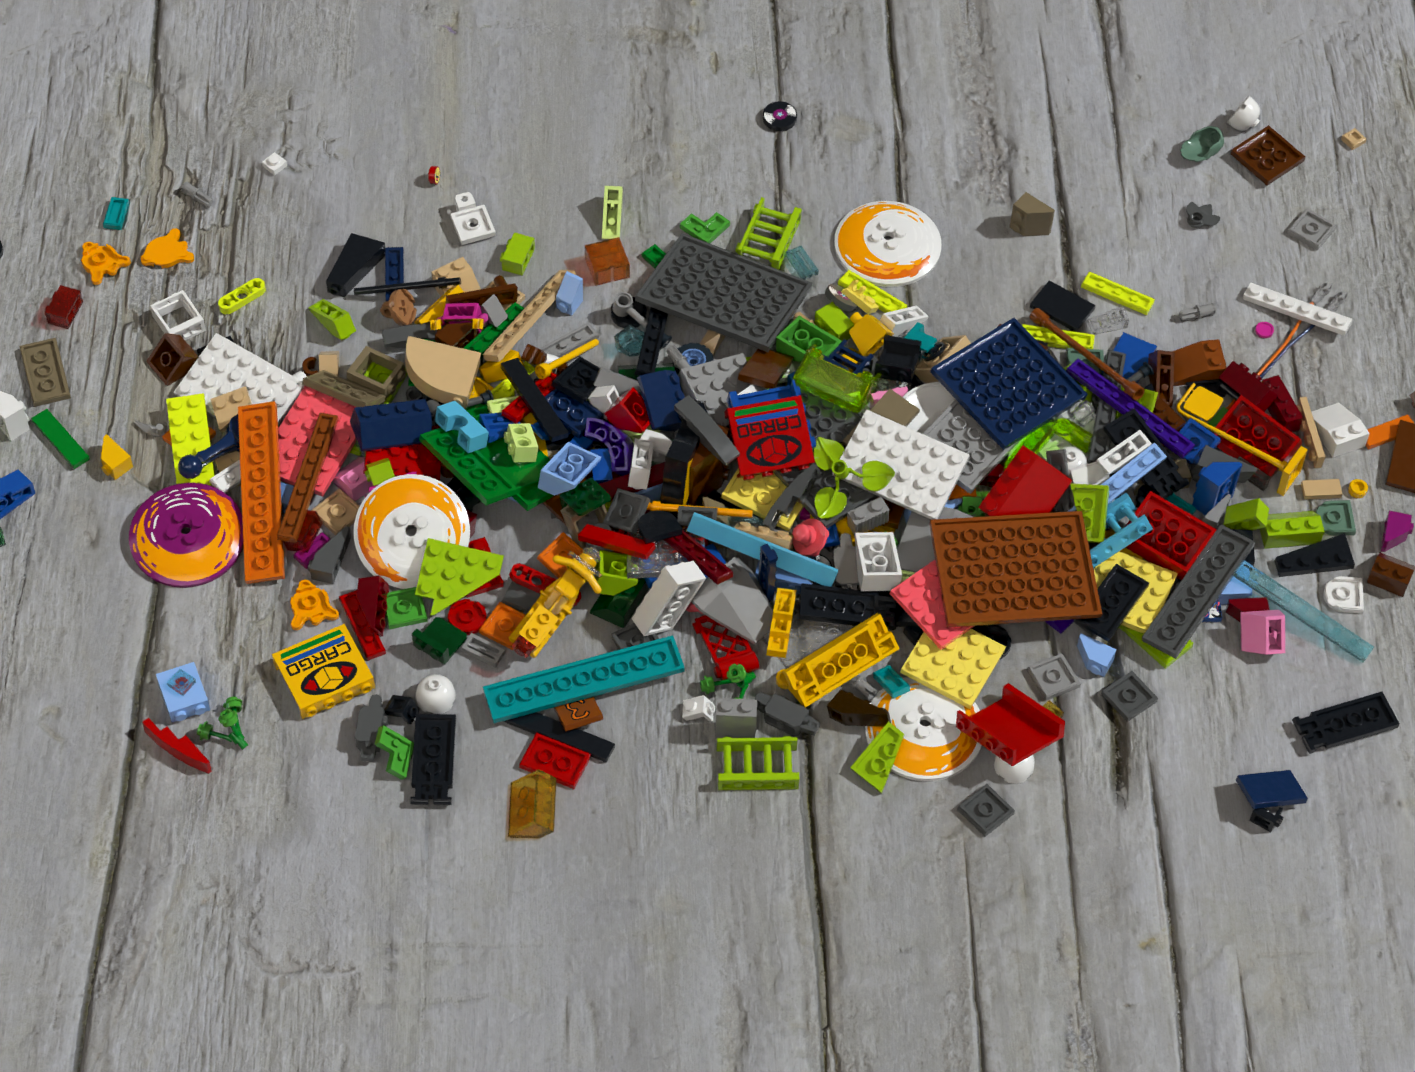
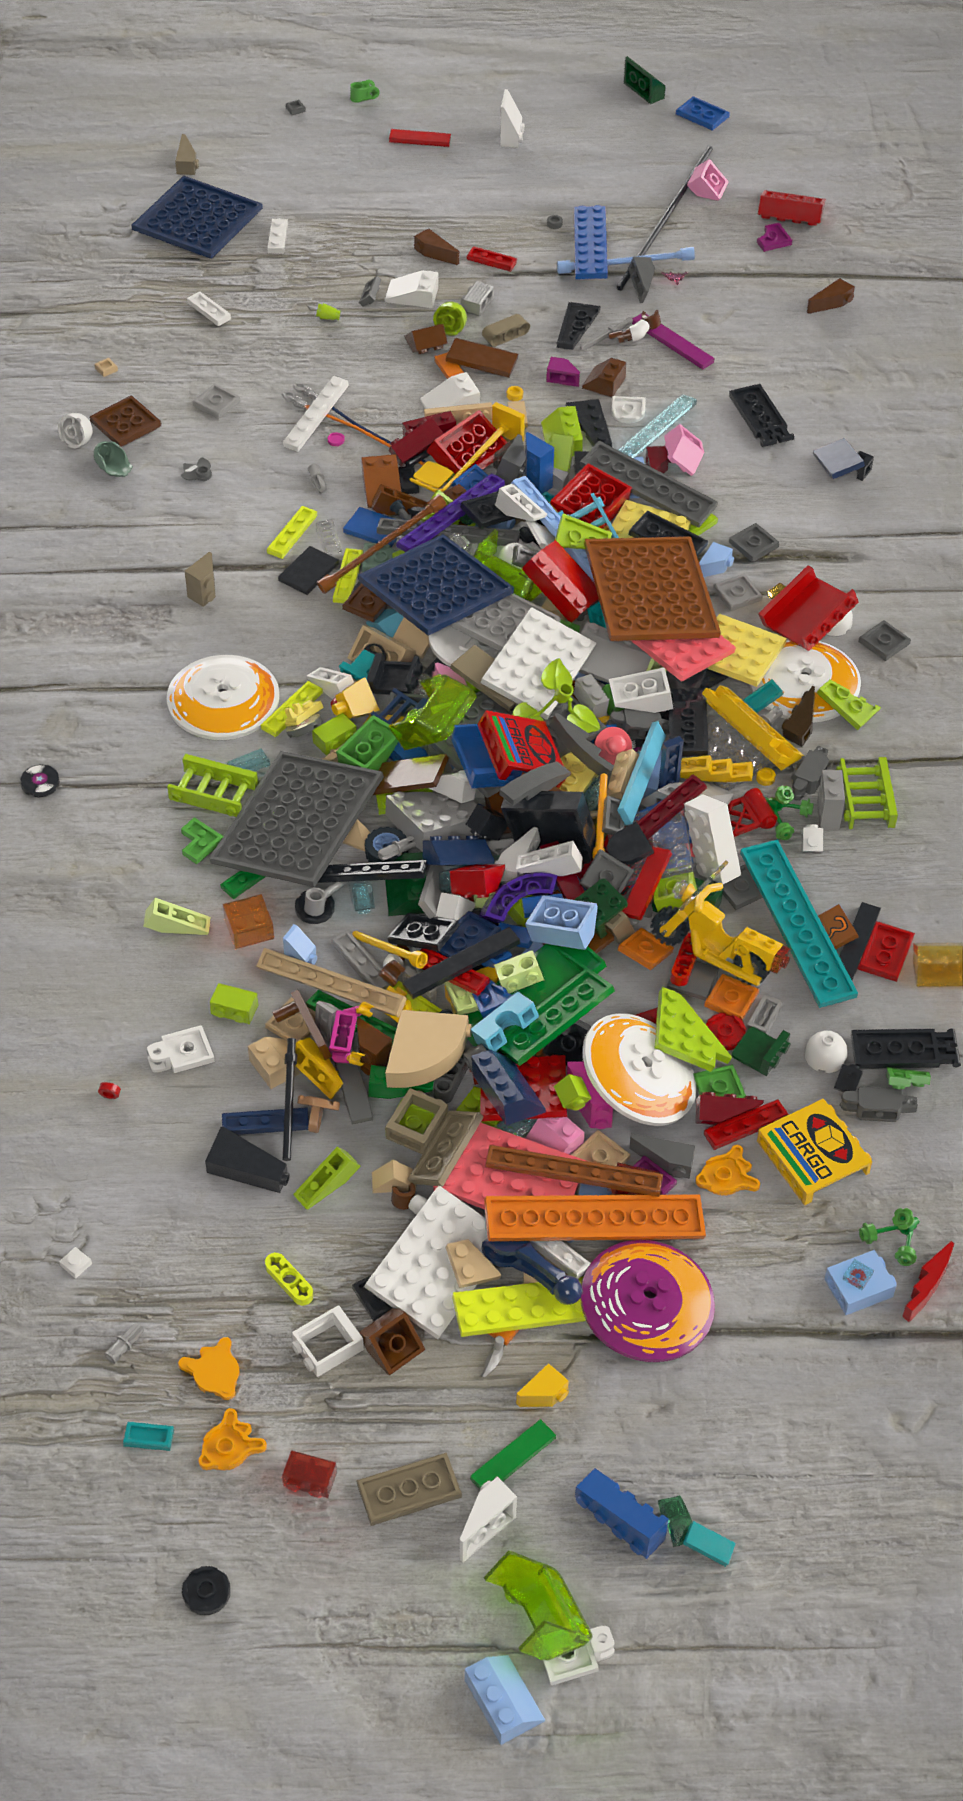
camera: 90 degrees left, 5 degrees down
(1337, 517) = (544, 406): sand green tile -> none

